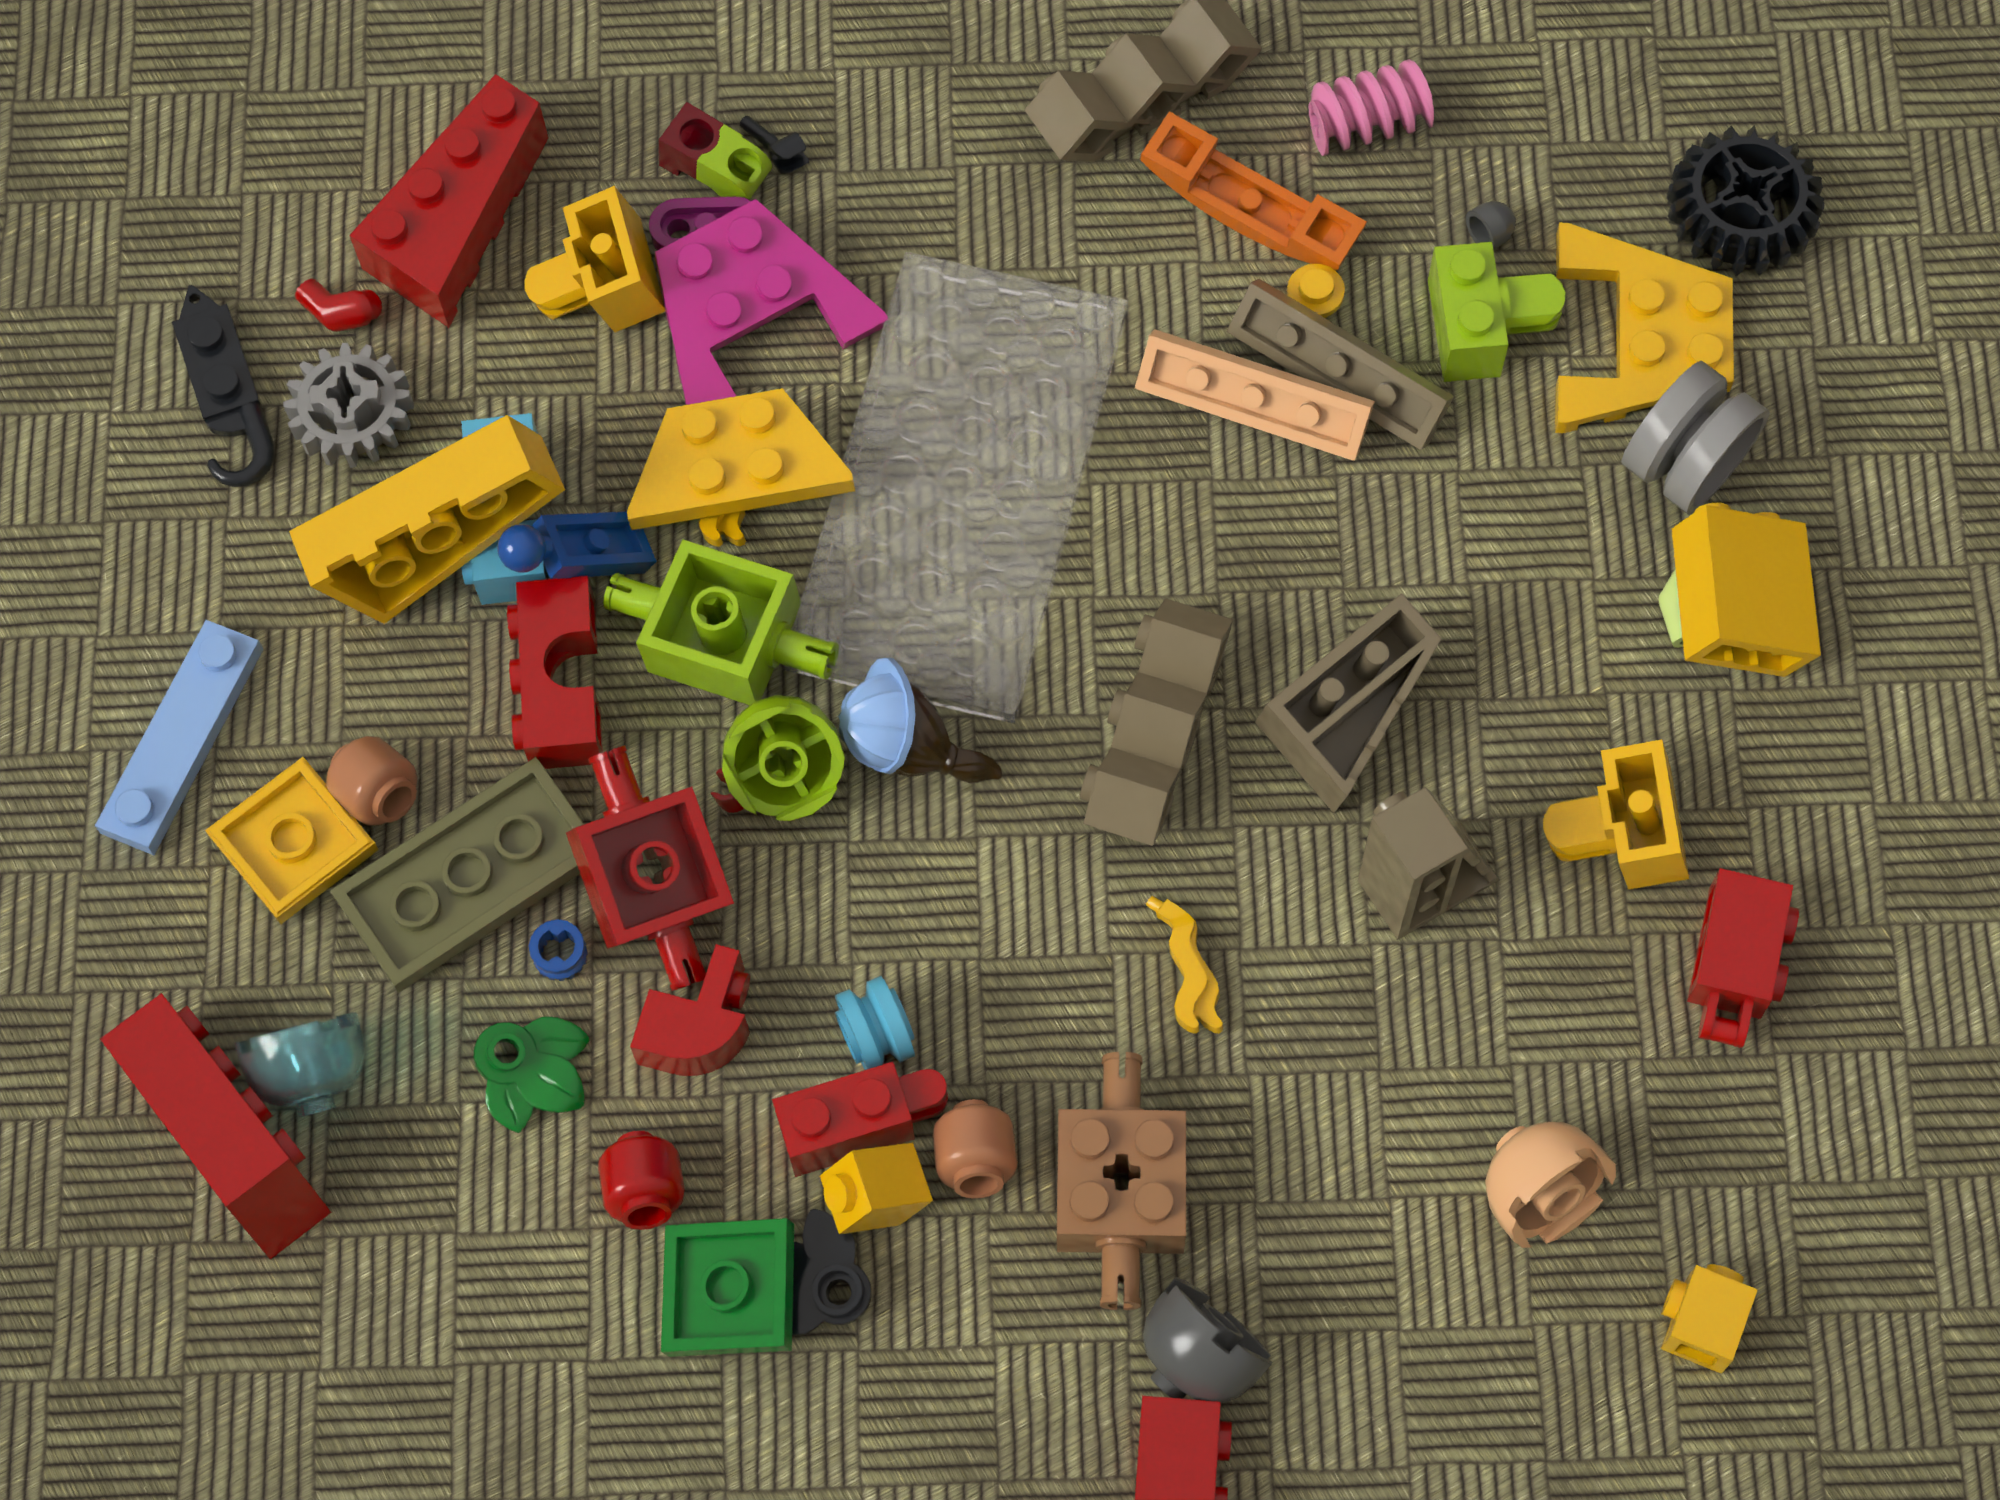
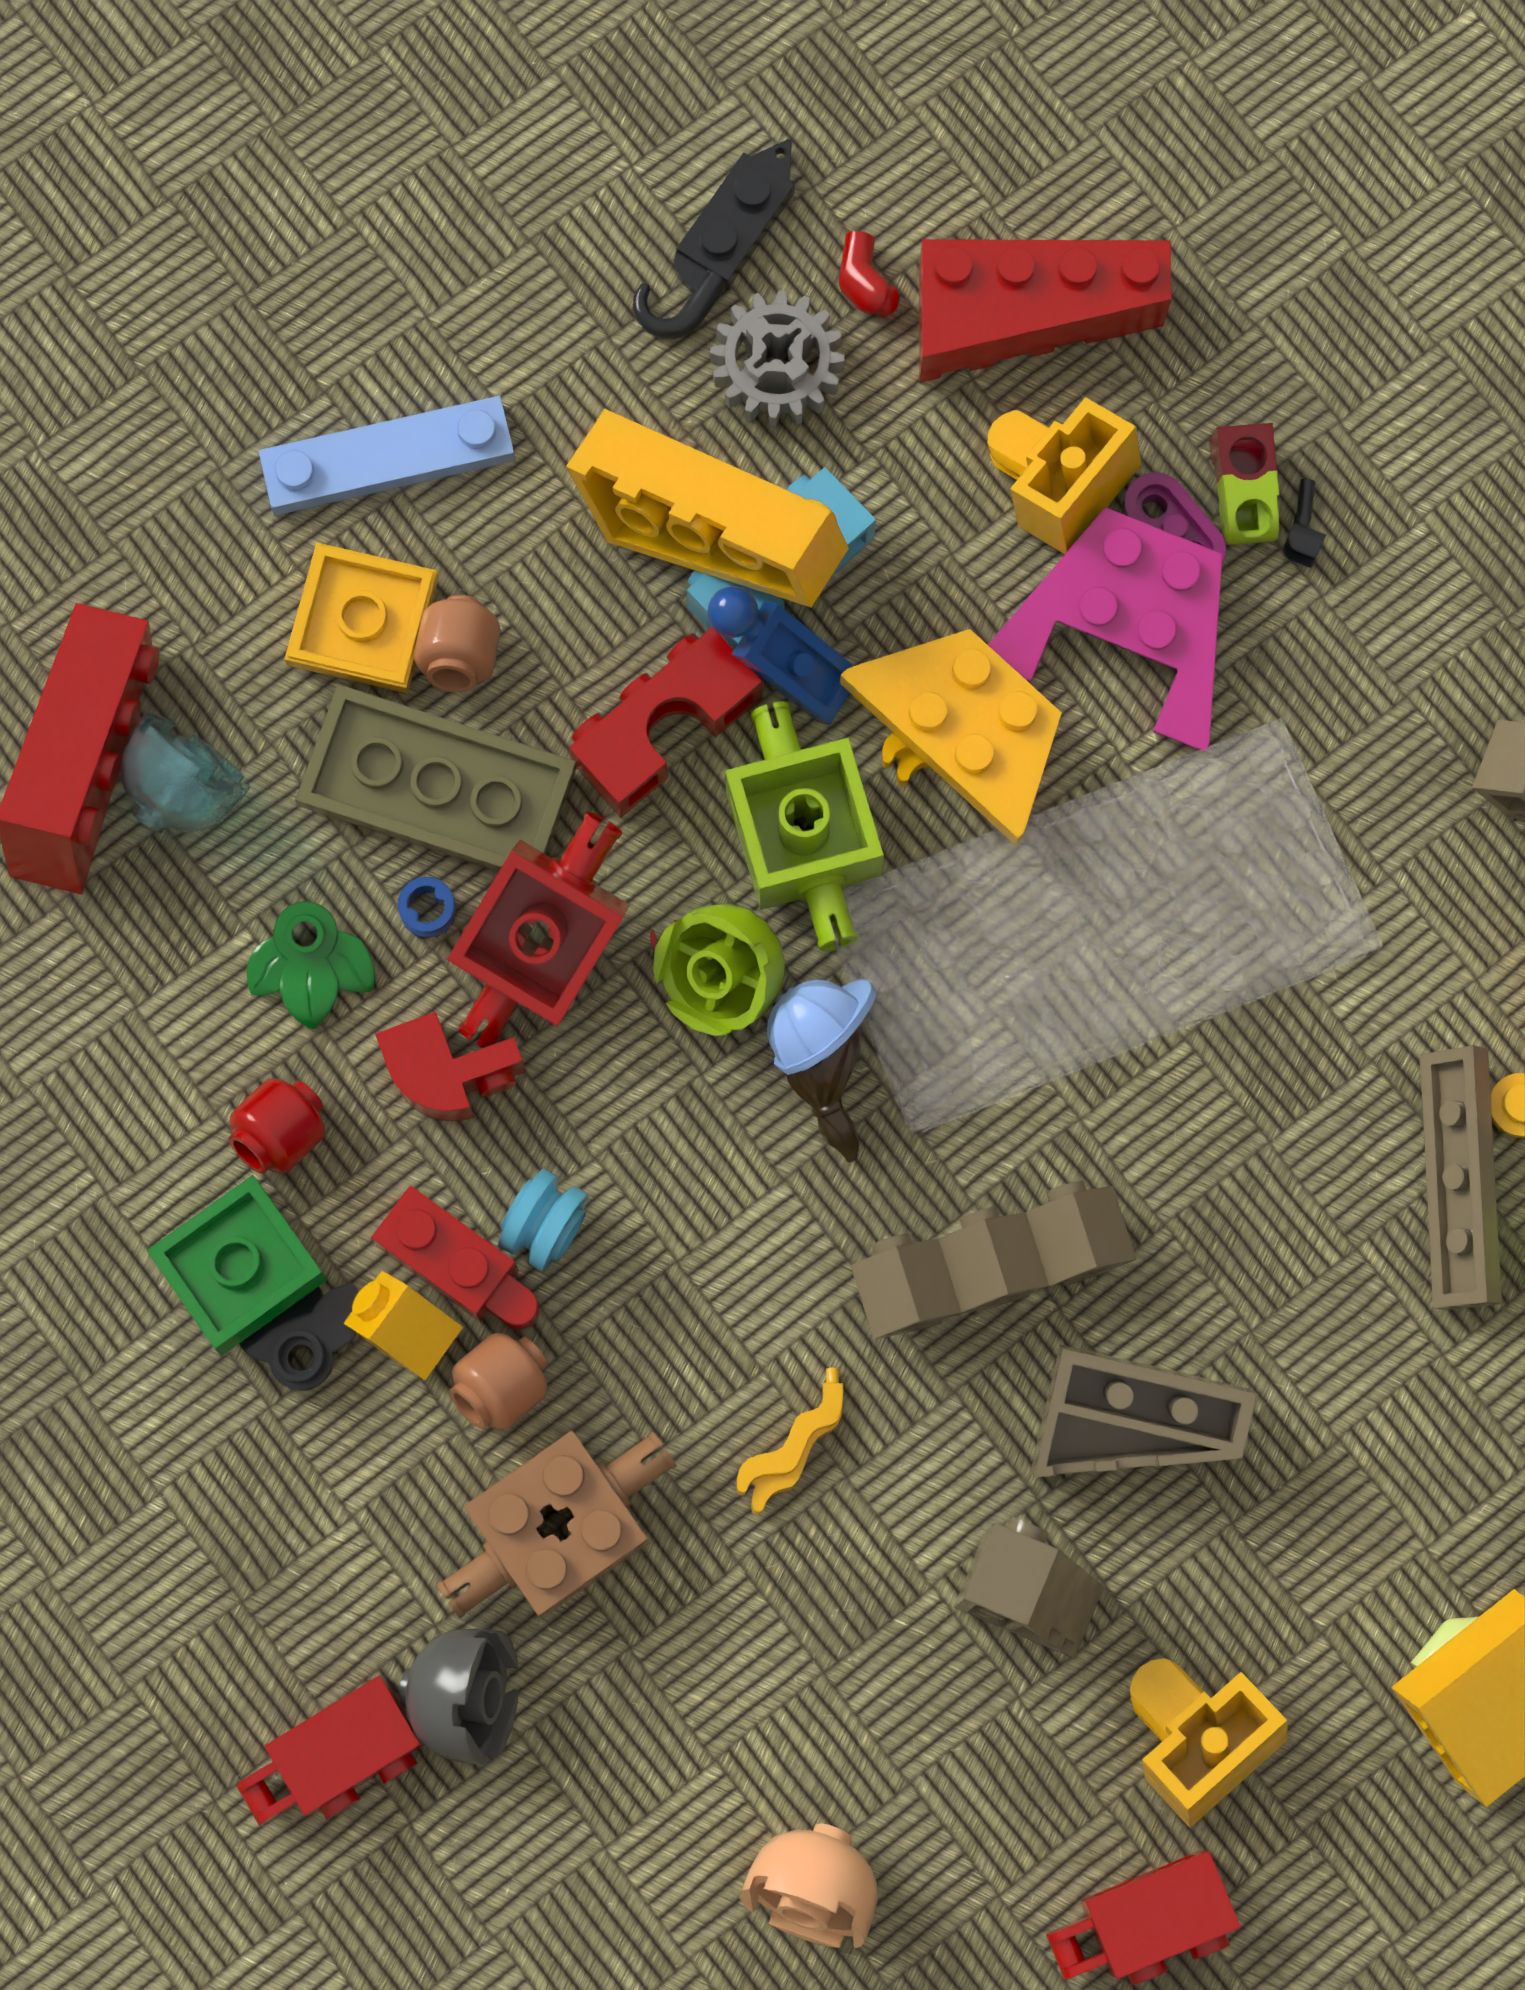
camera: 50 degrees right, 10 degrees up
(1254, 394) = (1372, 1124): light nougat plate -> none

